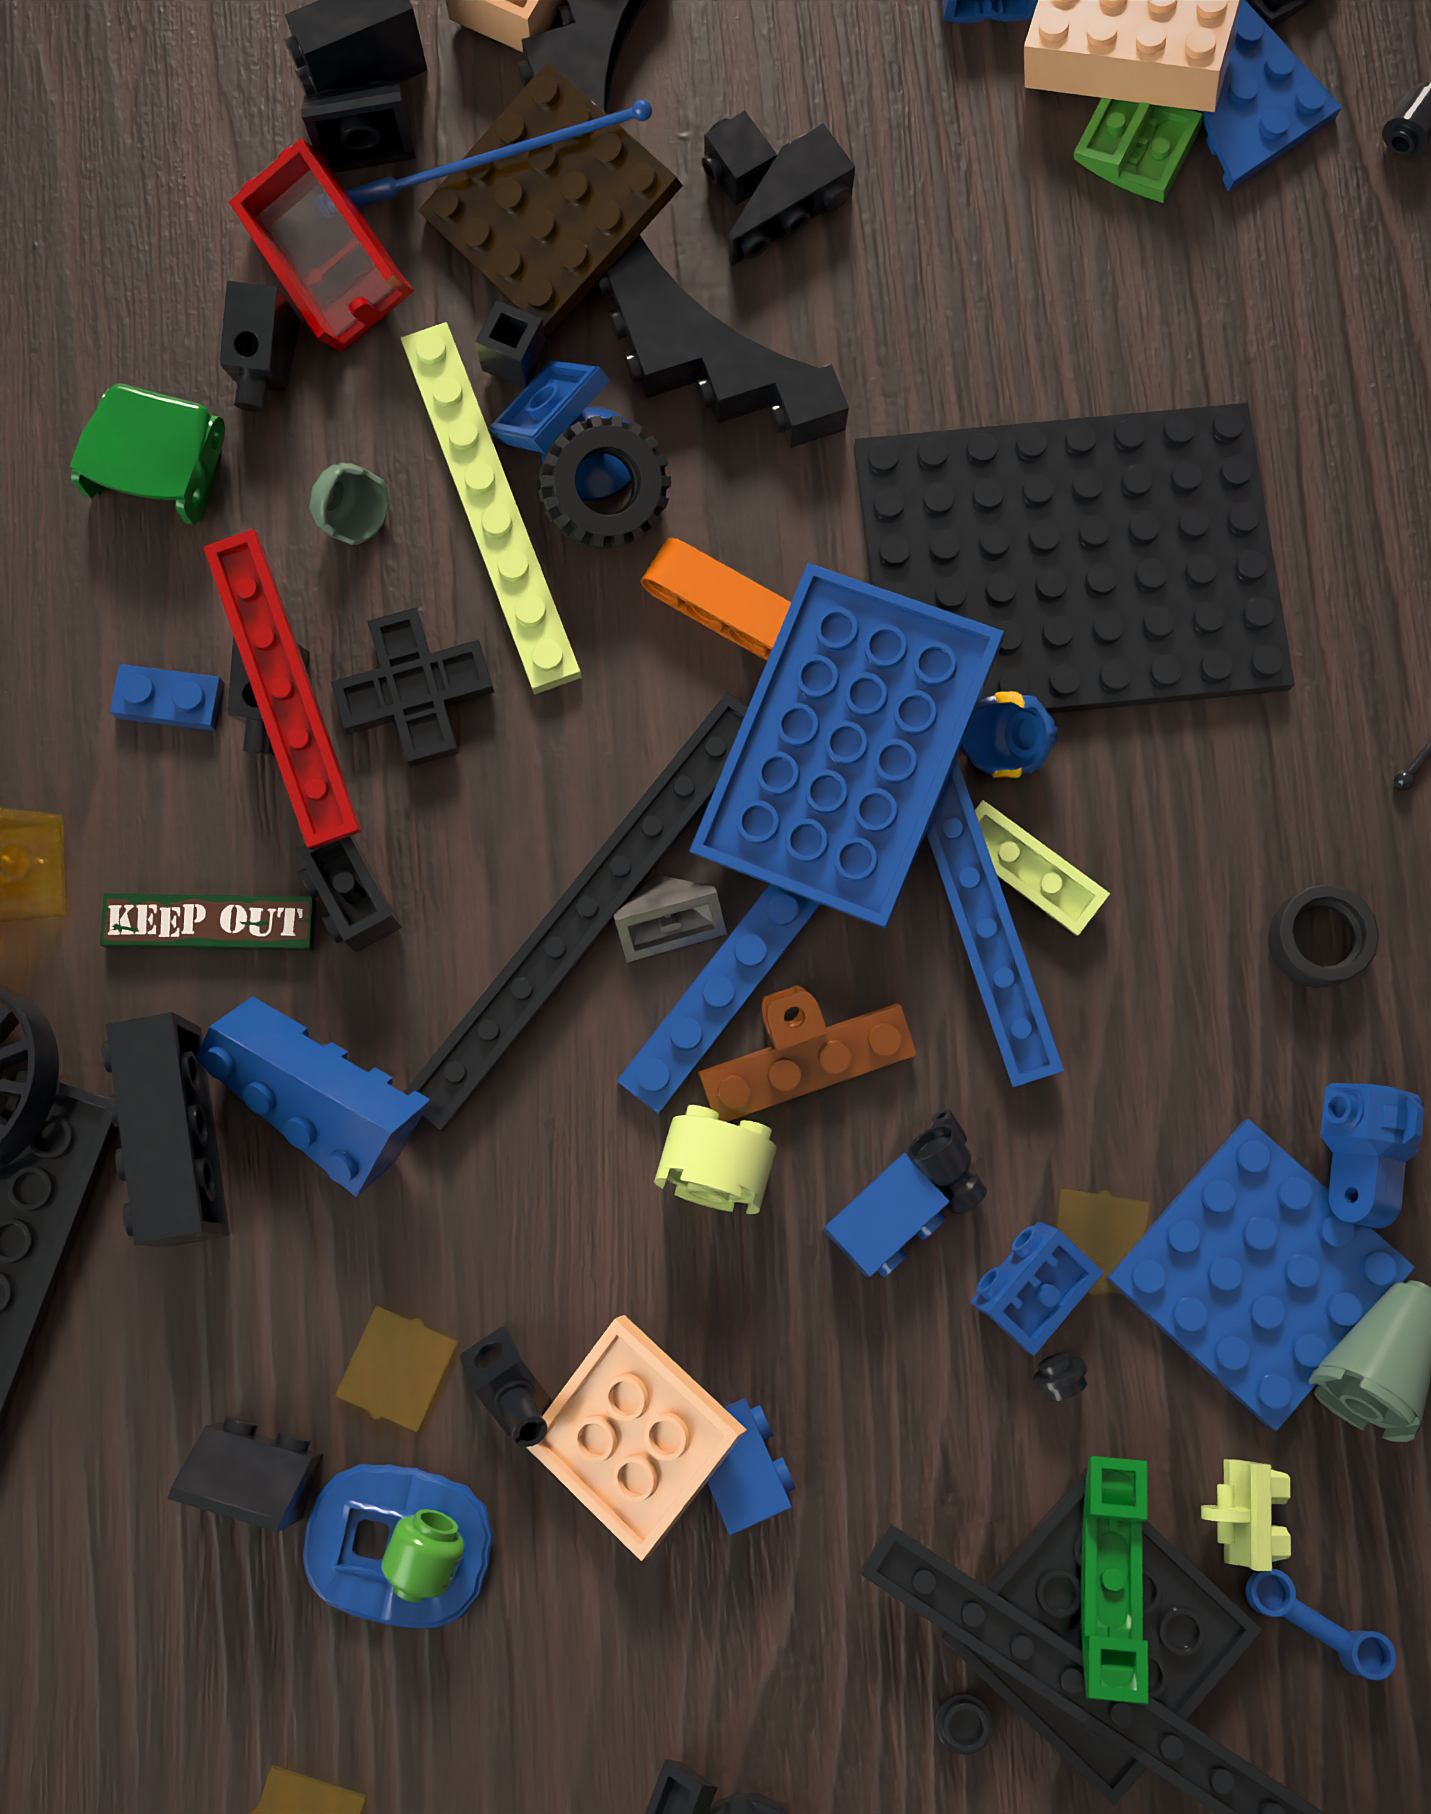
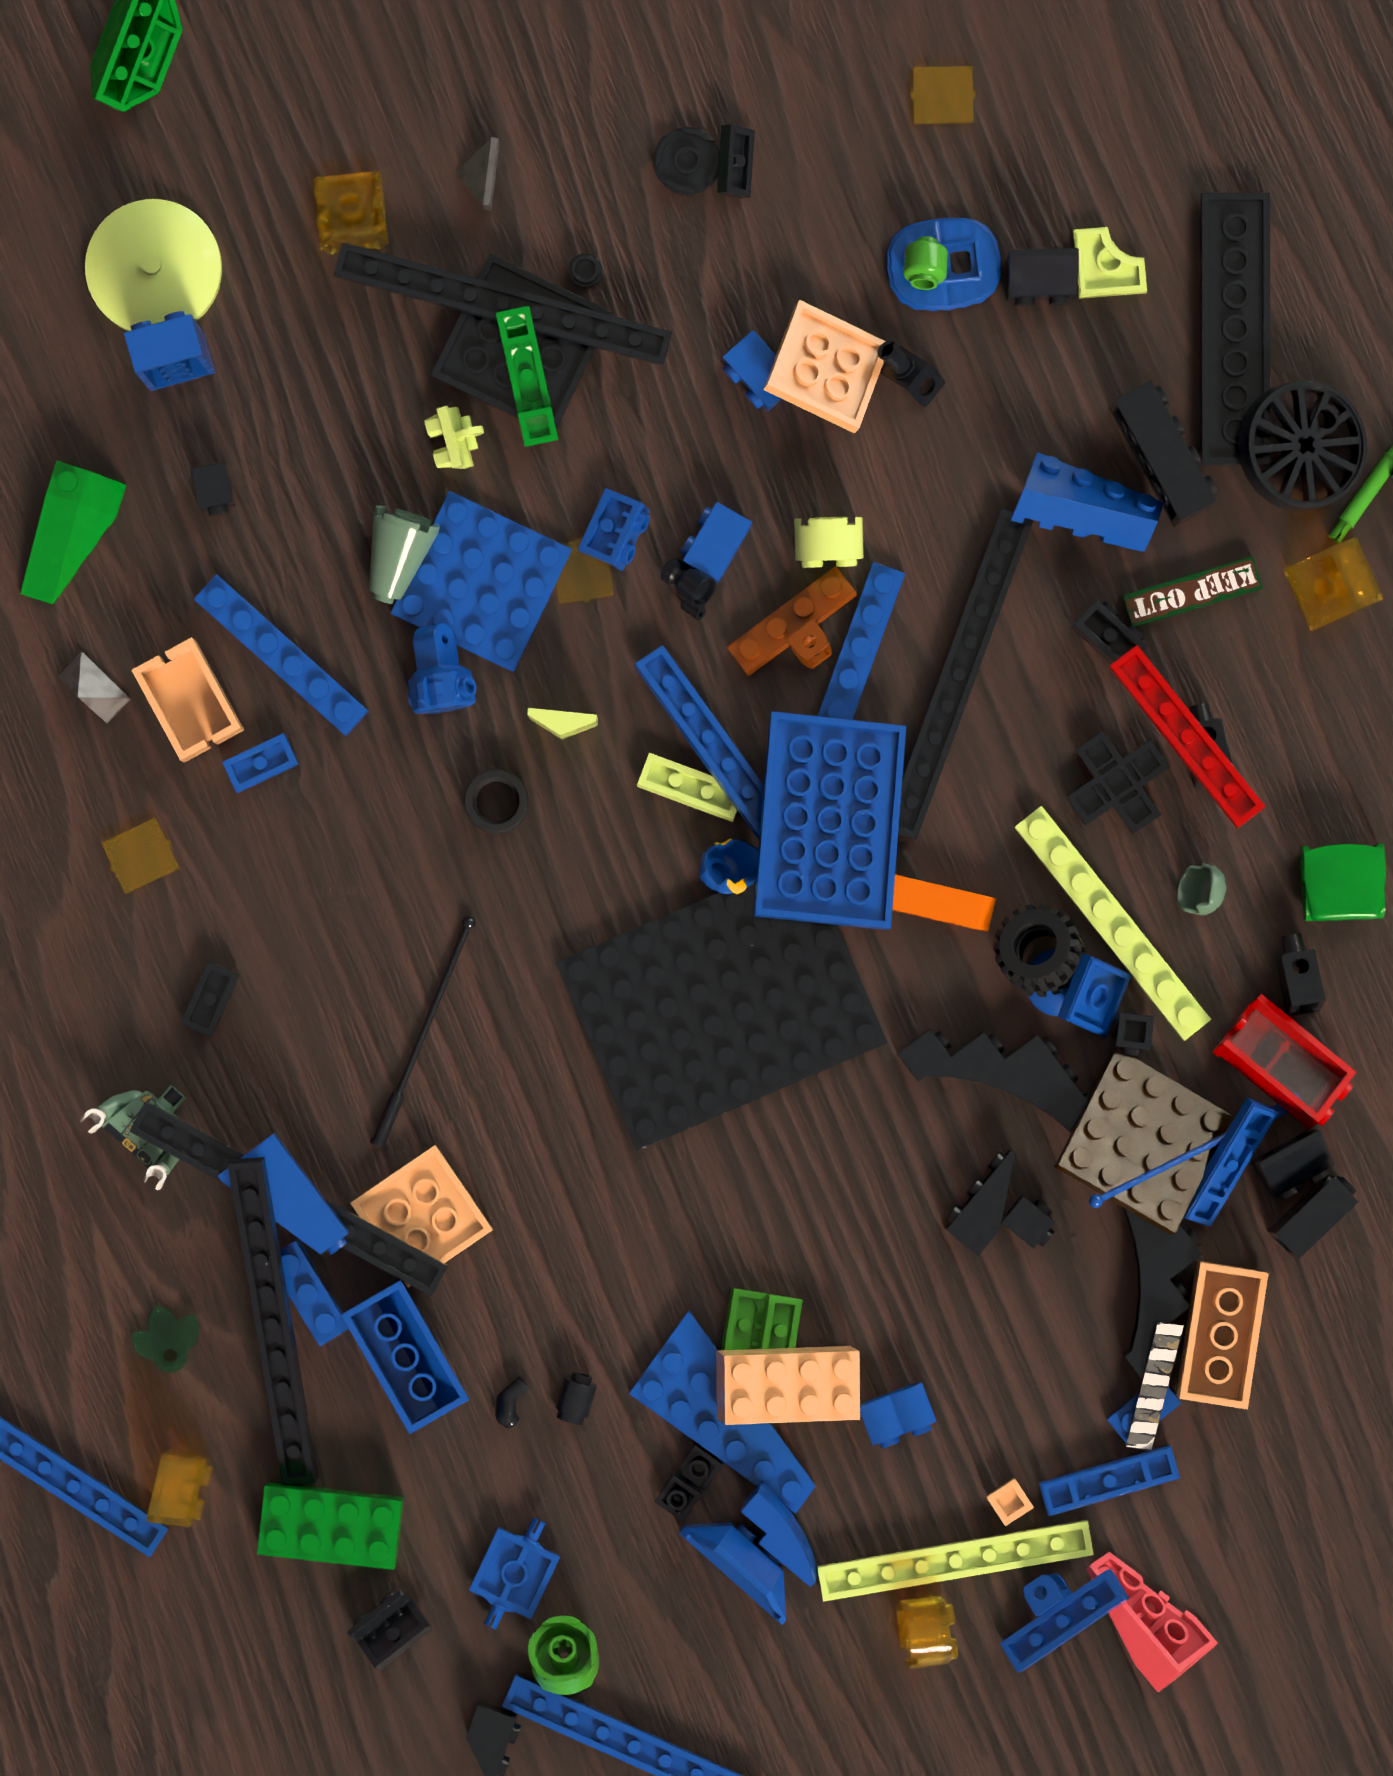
camera: 160 degrees right, 10 degrees up
(146, 1453) = (1105, 268): none -> yellowish green tile
(167, 697) = (1273, 727): blue plate -> none
(396, 1368) = (979, 363): clear yellow piece -> none
(419, 155) = (1230, 1160): none -> blue plate
(668, 916) = (907, 686): flat silver slope -> none
(1060, 1376) = (585, 481): black plate -> none
(1206, 1015) = (562, 723): none -> yellowish green slope
(1360, 1651) = (367, 381): blue bar -> none

